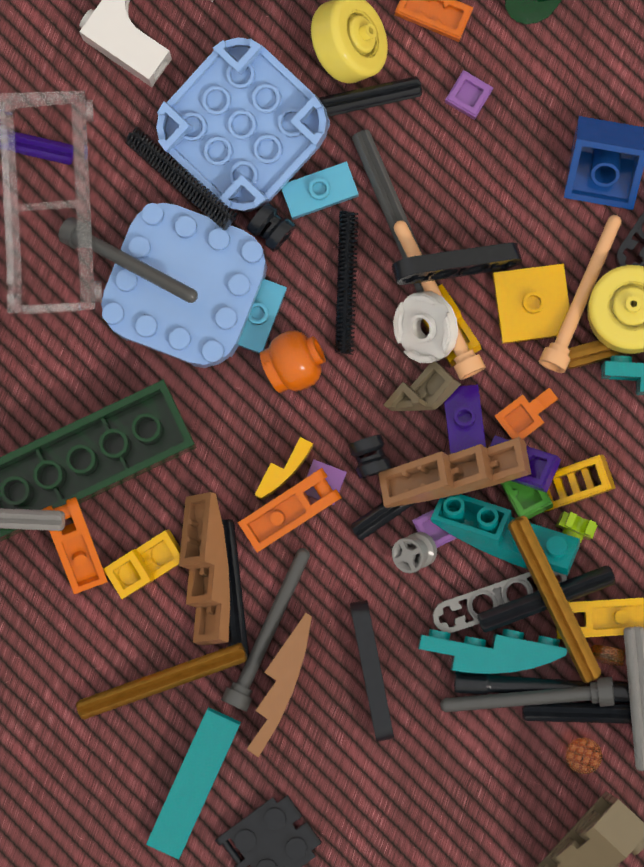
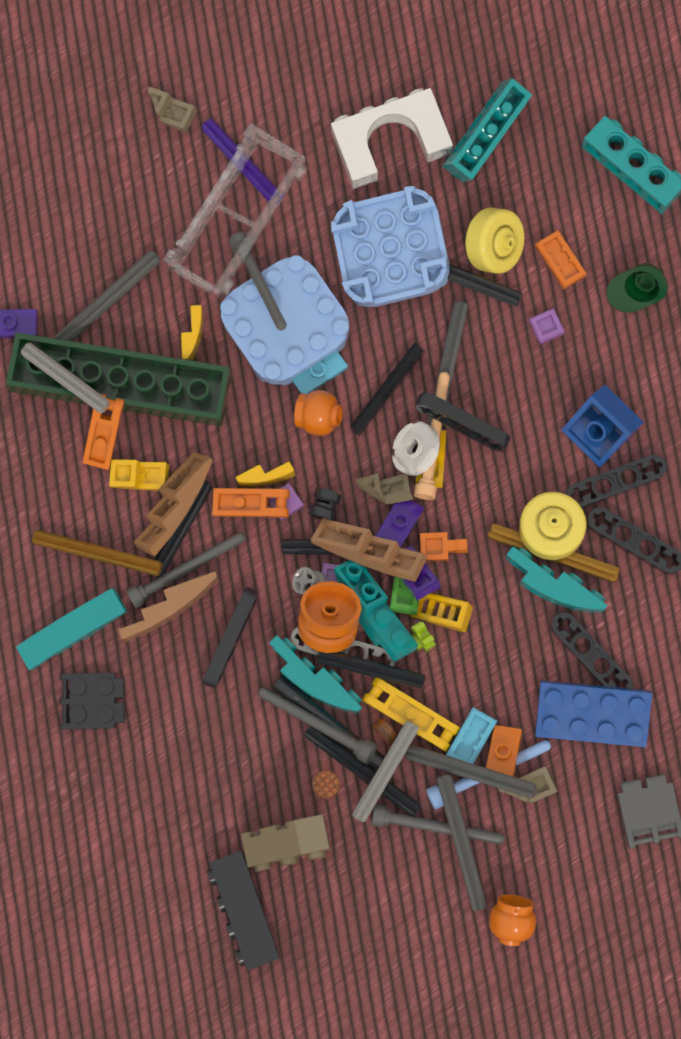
camera: 35 degrees right, 5 degrees down
(97, 377) = (191, 340): none -> yellow slope
(178, 178) = (329, 255): black axle -> none
(271, 227) = (364, 322): black wheel -> none
(319, 190) = (411, 321): medium azure plate -> none
(464, 576) = (329, 617): none -> orange wheel
(531, 302) = (494, 482): yellow plate -> none
(554, 599) = (374, 670): pearl gold axle -> none
(556, 355) = (485, 522): light nougat piece -> none

